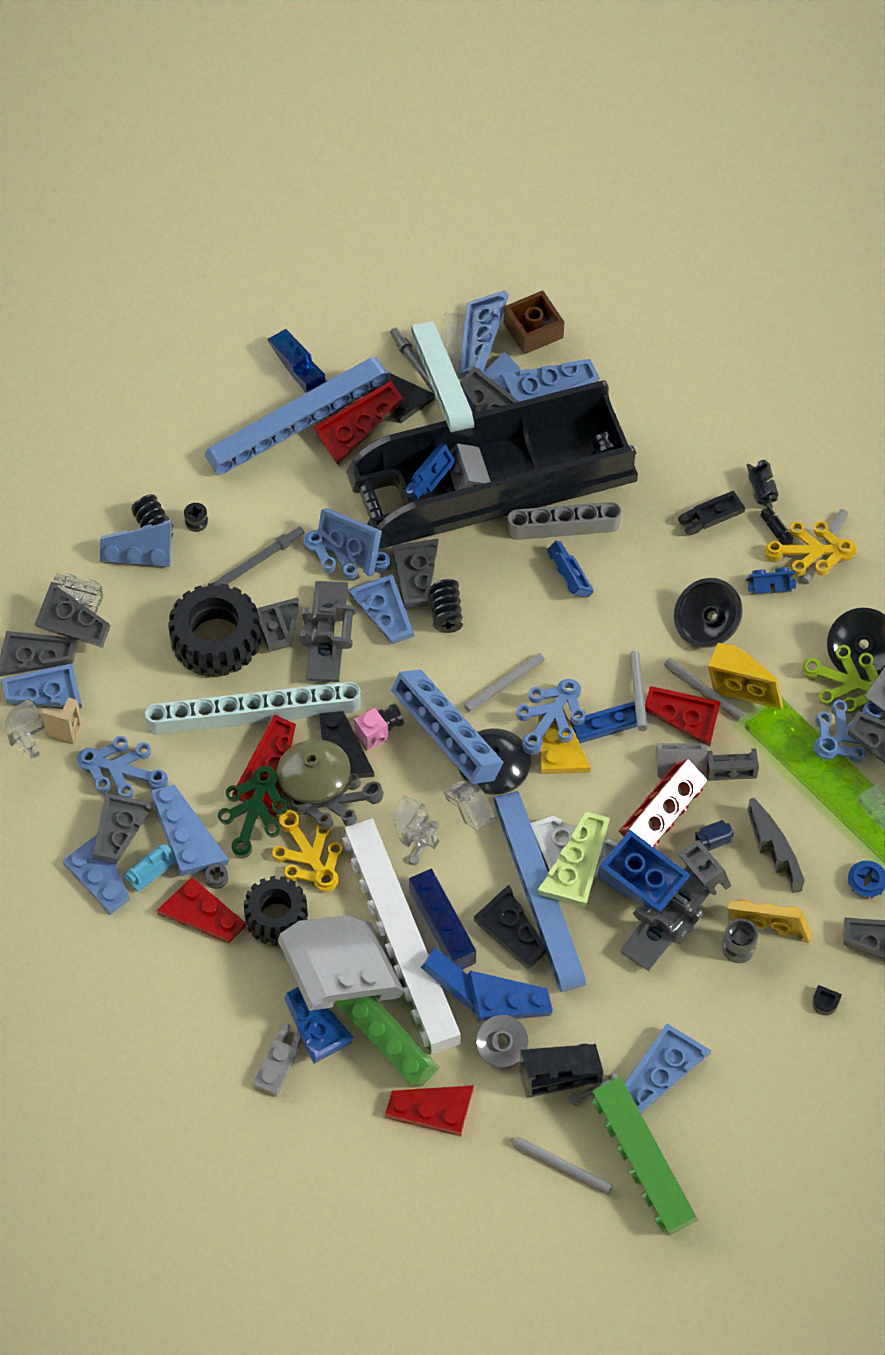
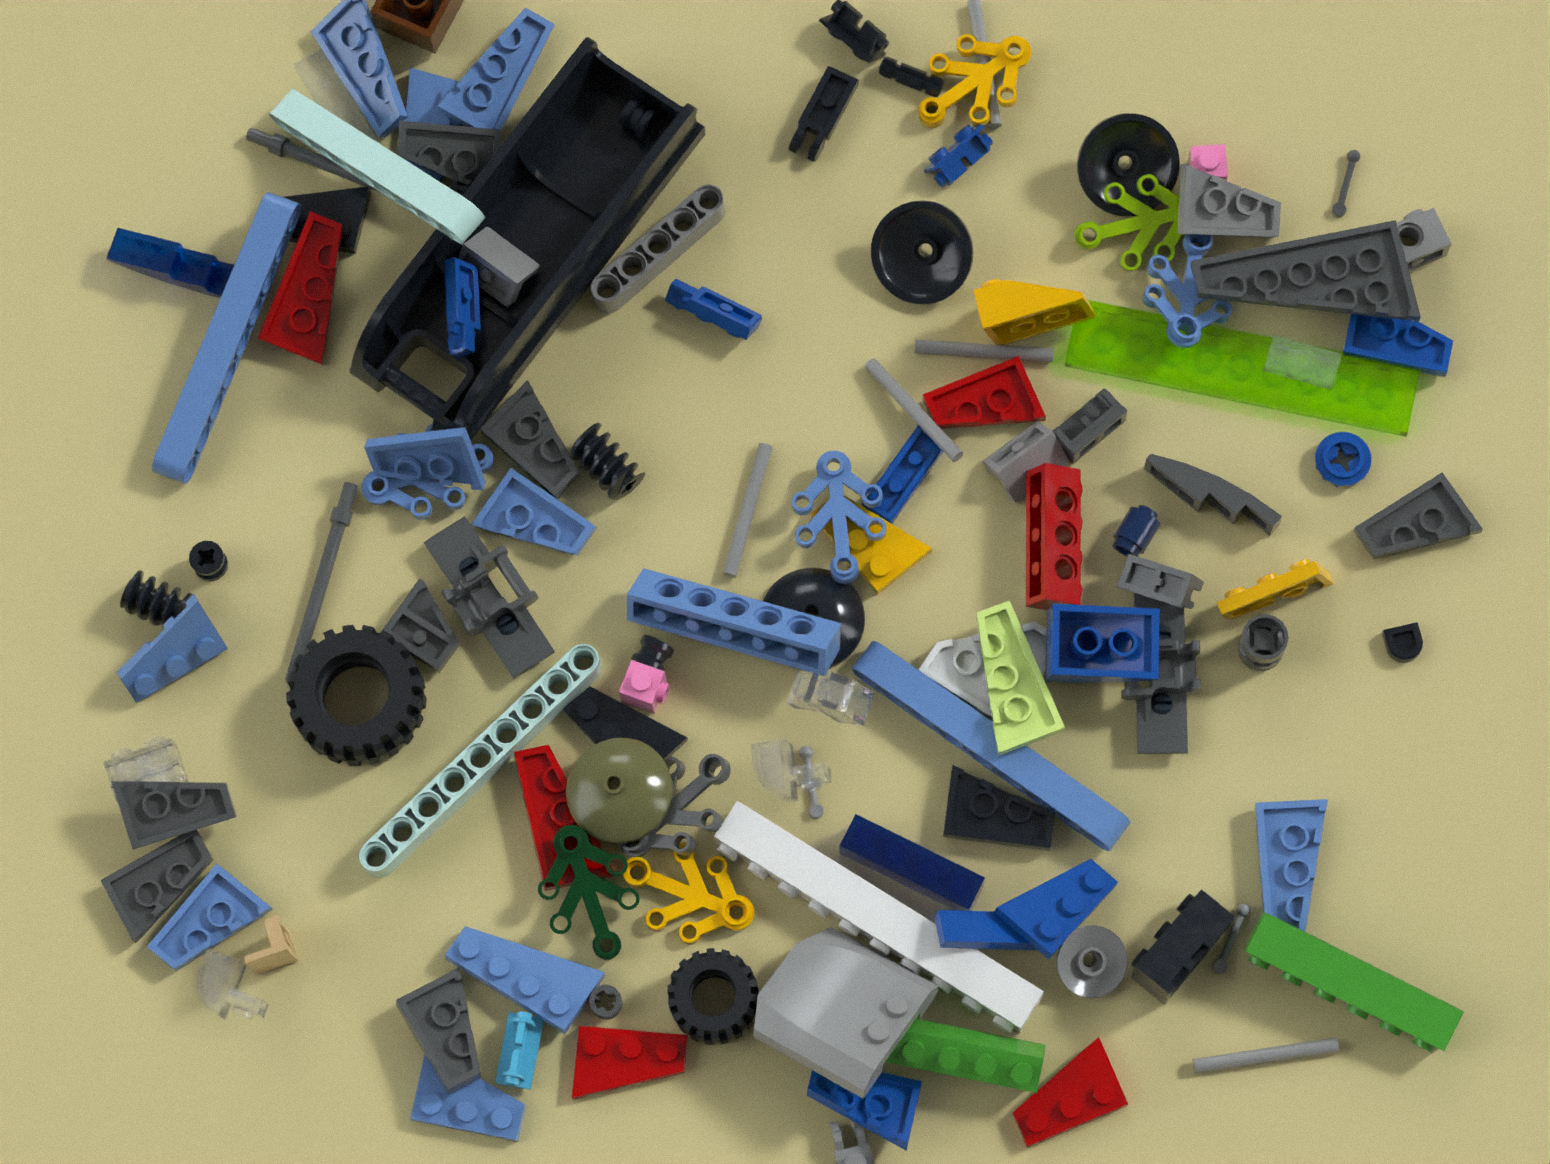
camera: 30 degrees left, 15 degrees up
(120, 766) = (379, 952): medium blue plant -> none

